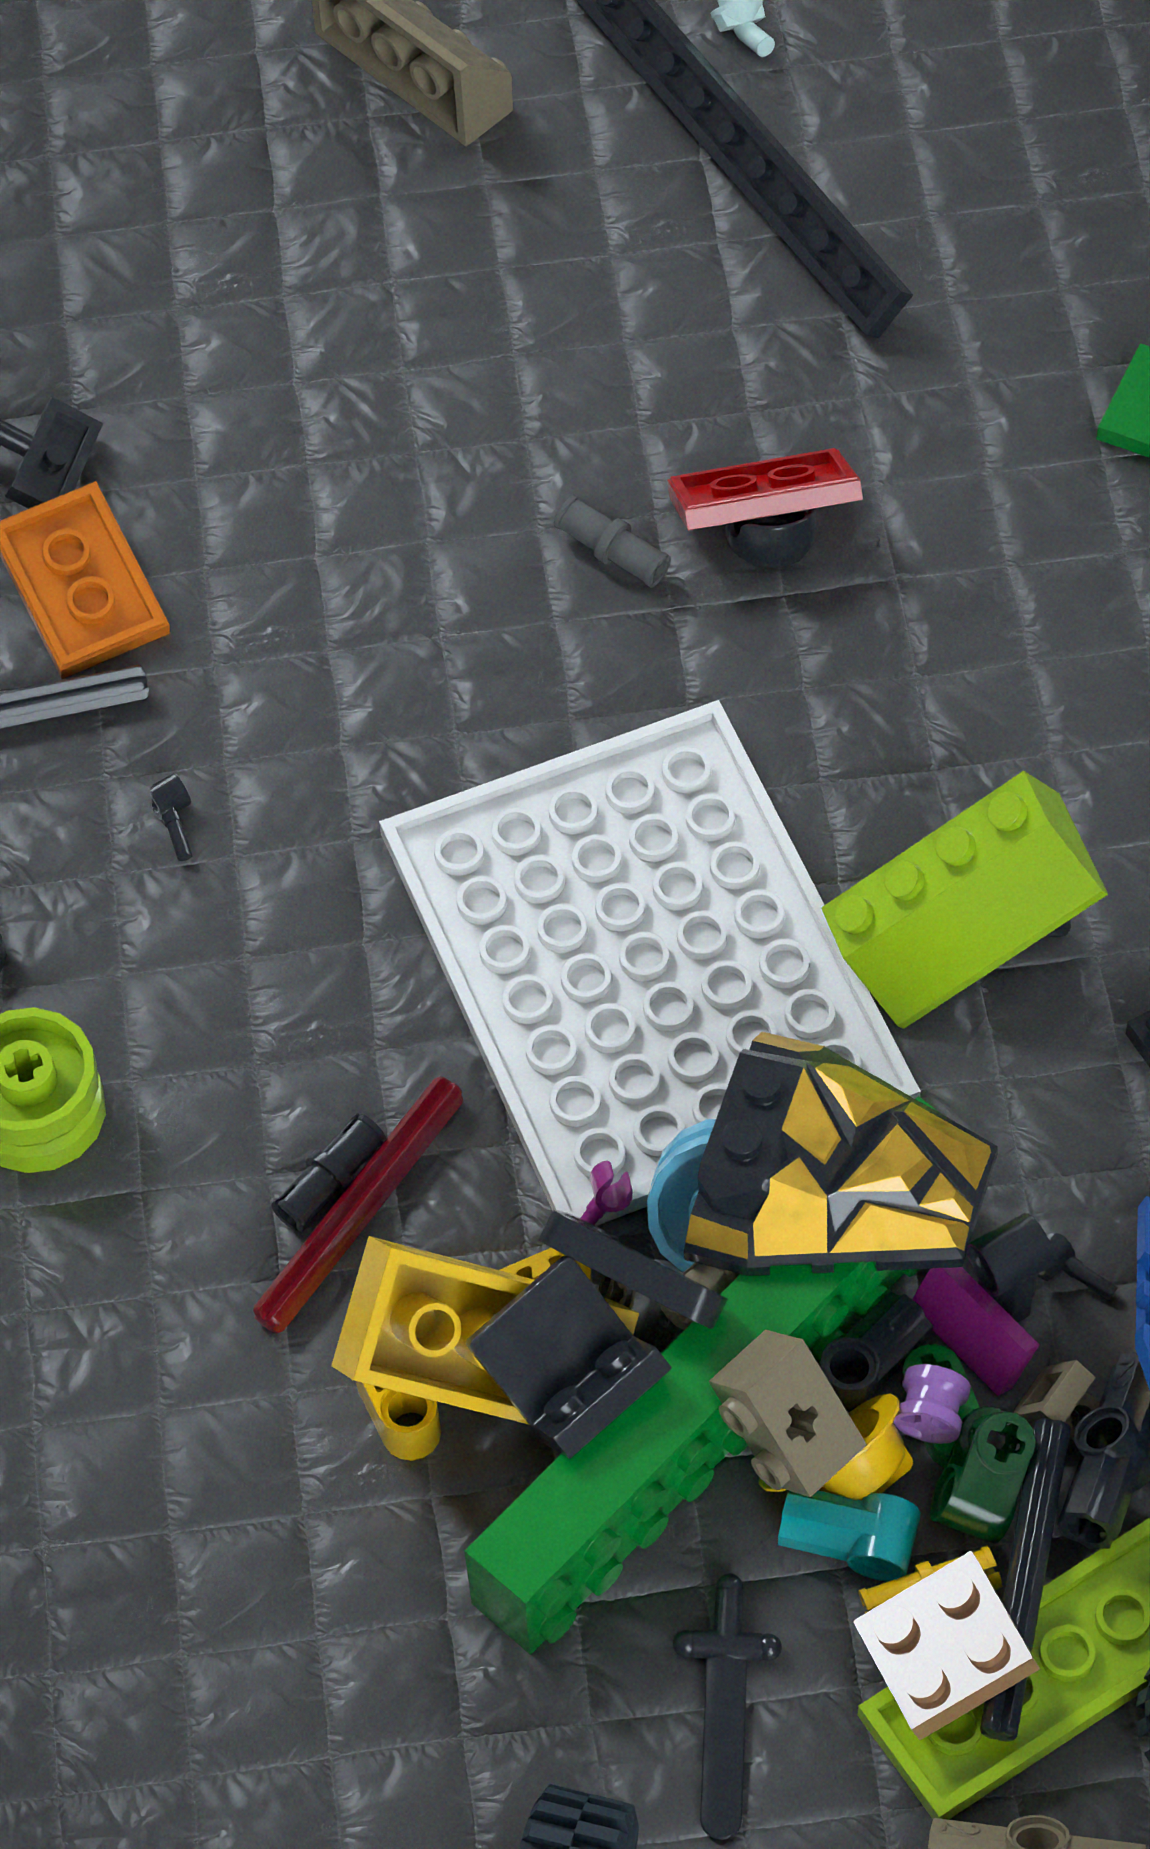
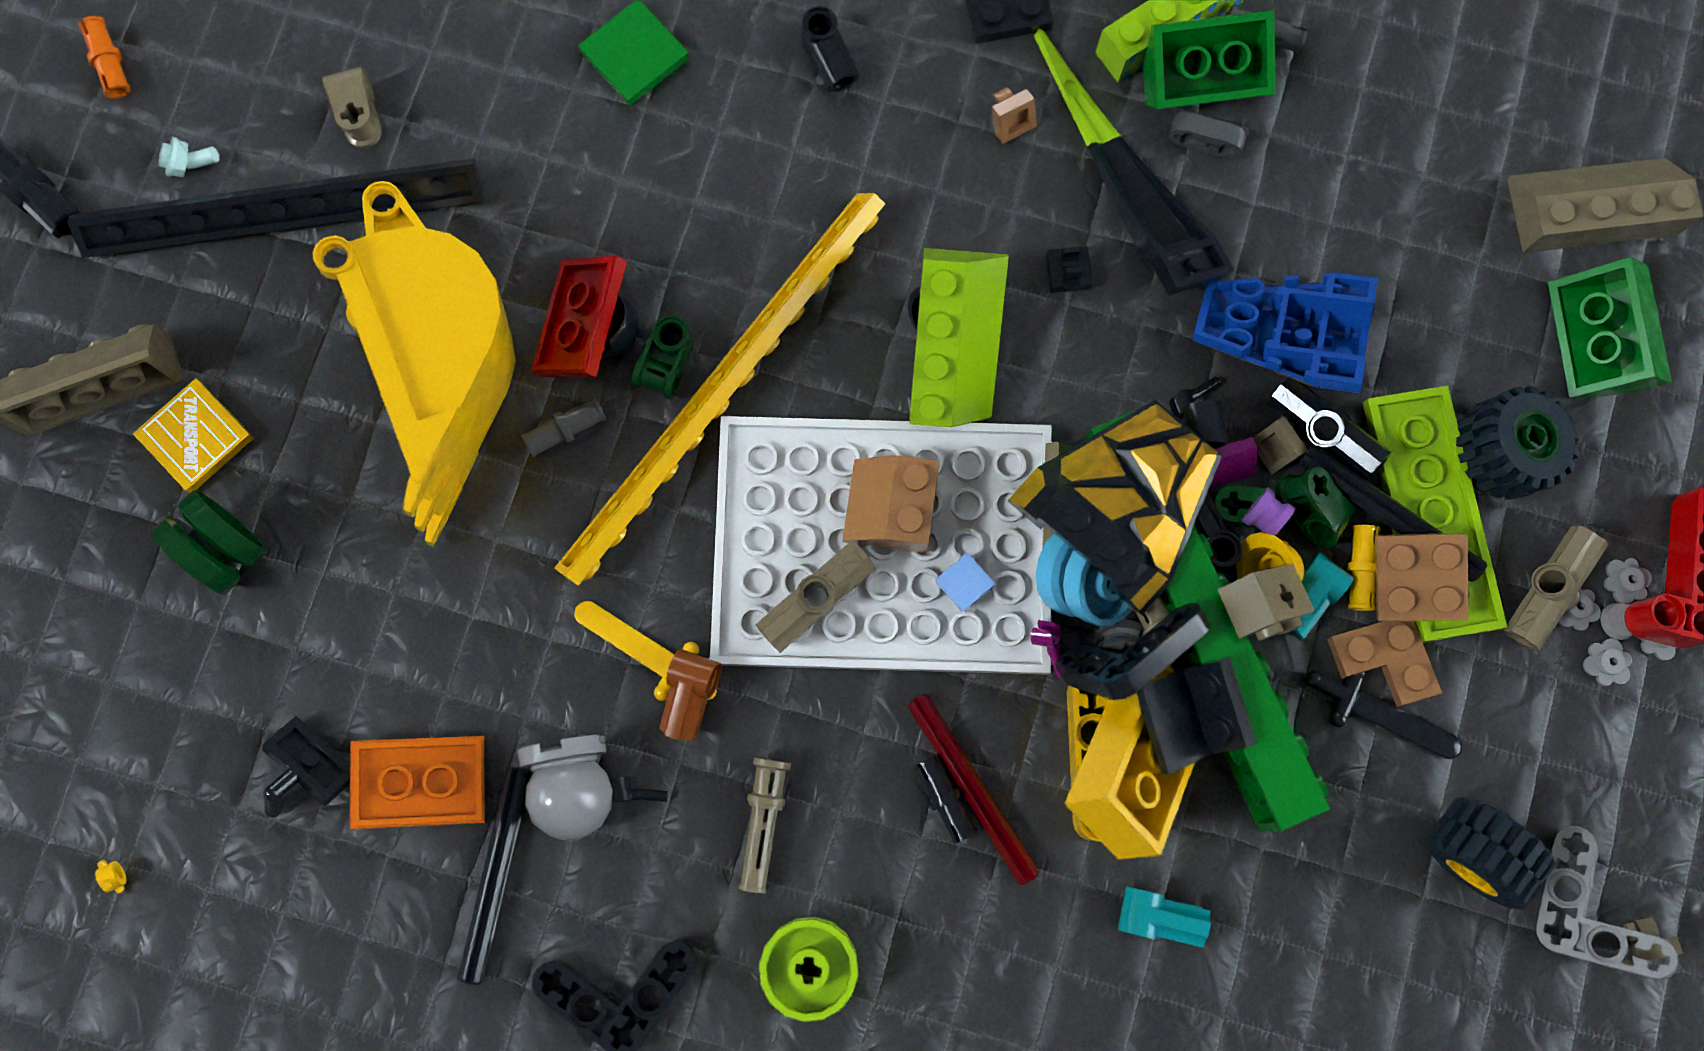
camera: 70 degrees left, 20 degrees up
(139, 725) = (568, 789): none -> light grey tile
(227, 963) = (767, 797): none -> dark tan pin
(270, 237) = (208, 542): none -> dark green wheel
(283, 1492) = (1153, 916): none -> teal piece
(342, 807) = (691, 684): none -> dark orange piece
(362, 761) = (630, 642): none -> yellow sword
(399, 181) = (193, 435): none -> yellow tile
(554, 904) = (836, 577): none -> dark tan piece
(607, 339) = (432, 342): none -> yellow piece
(635, 1065) = (965, 582): none -> light blue tile
(701, 937) = (891, 502): none -> medium nougat slope
(766, 609) = (663, 365): none -> dark green piece
(790, 694) = (712, 397): none -> yellow plate
(826, 1680) = (1396, 650): none -> medium nougat plate
(911, 151) = (354, 106): none -> dark tan piece

